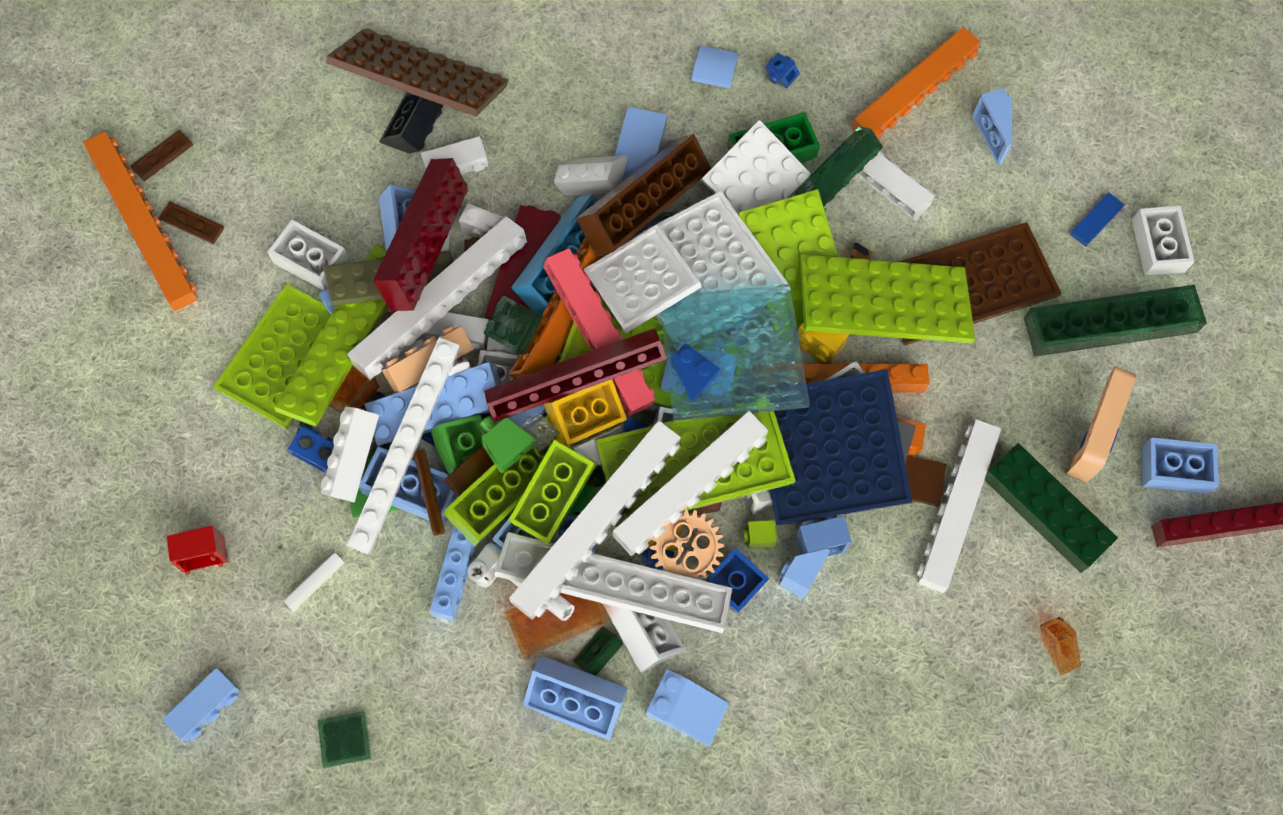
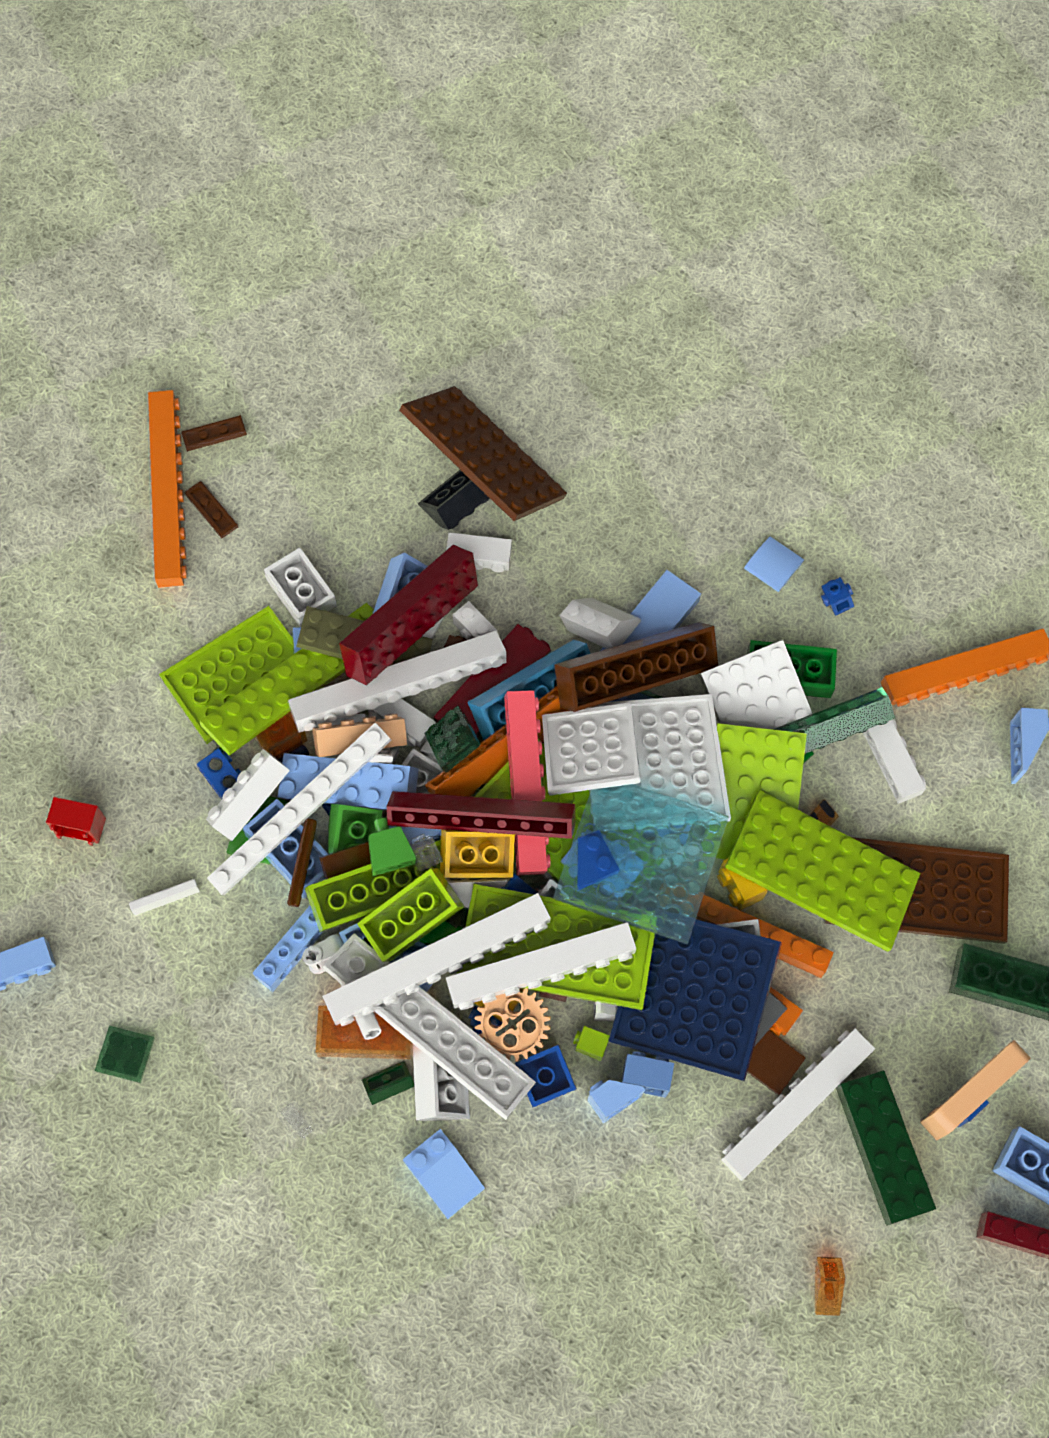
camera: 25 degrees right, 0 degrees up
(575, 697) = (346, 1114): light blue slope -> none

